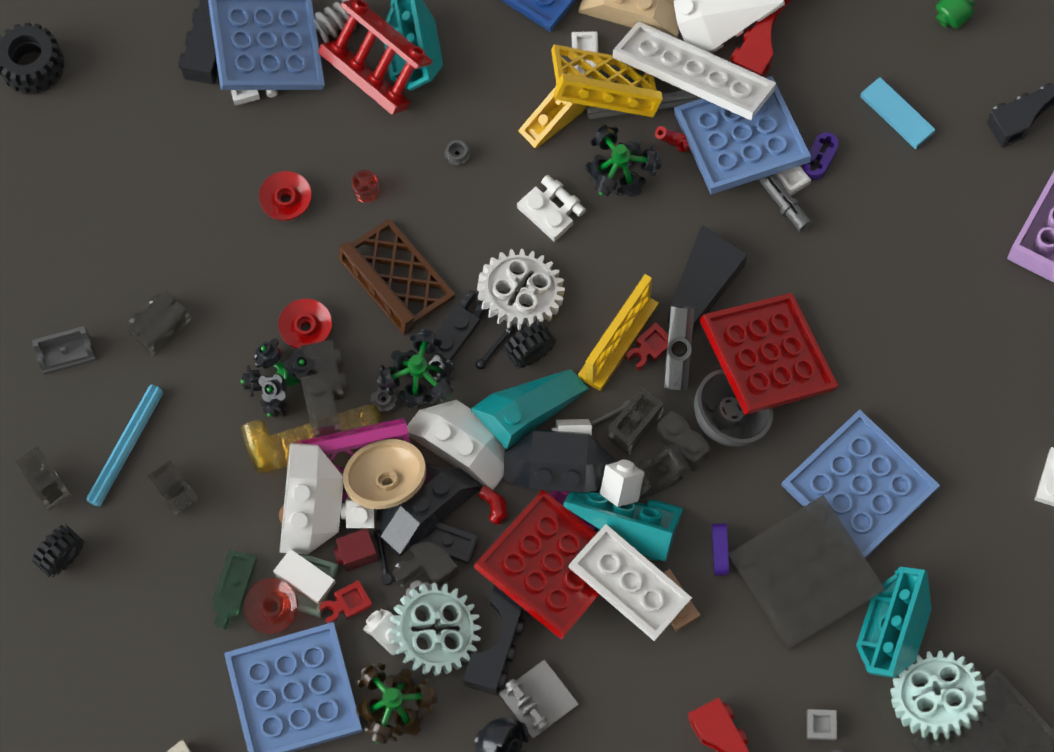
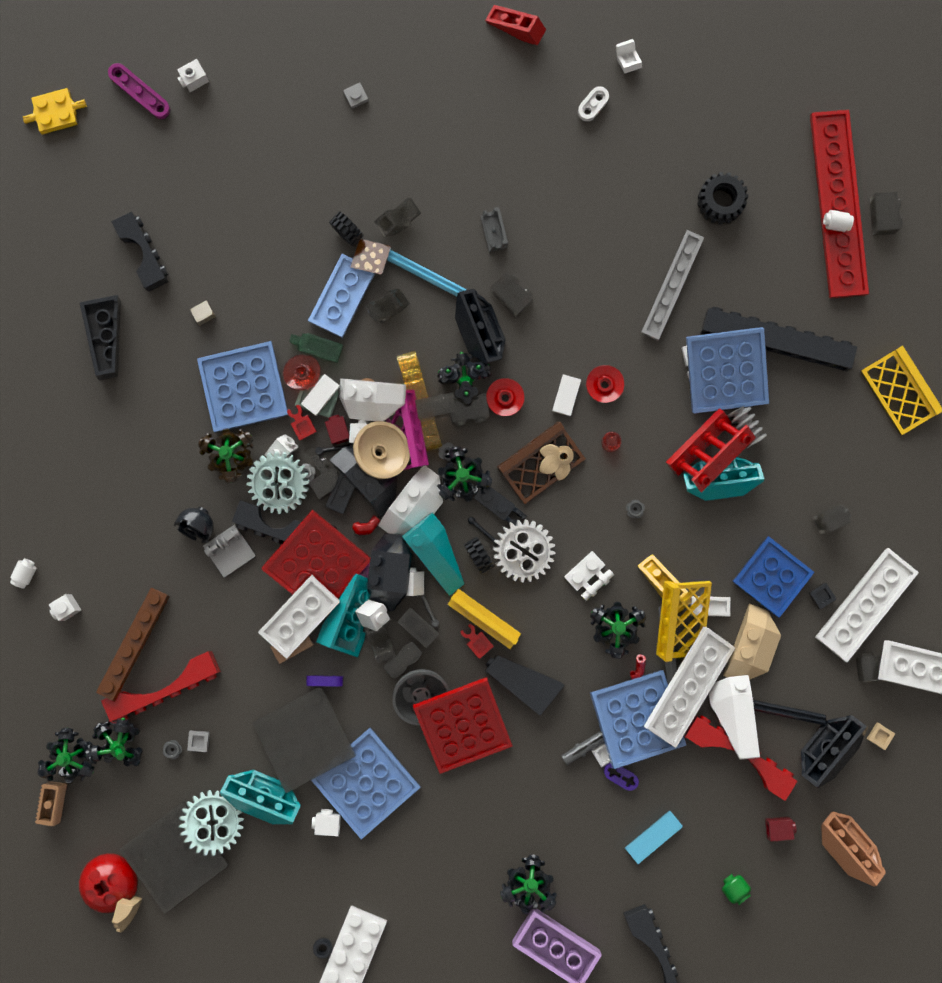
camera: 90 degrees right, 15 degrees up
(100, 516) = (370, 256): none -> sticker
(148, 118) = (672, 285): none -> light grey plate
(157, 556) = (341, 297): none -> light blue plate
(206, 362) = (479, 326): none -> black wedge
(301, 247) = (566, 395): none -> white tile
(393, 255) = (553, 461): none -> tan plate
(678, 364) = (479, 663): dark grey piece -> none
(922, 534) = (326, 823): none -> white brick
(975, 248) = (535, 884): none -> black plant

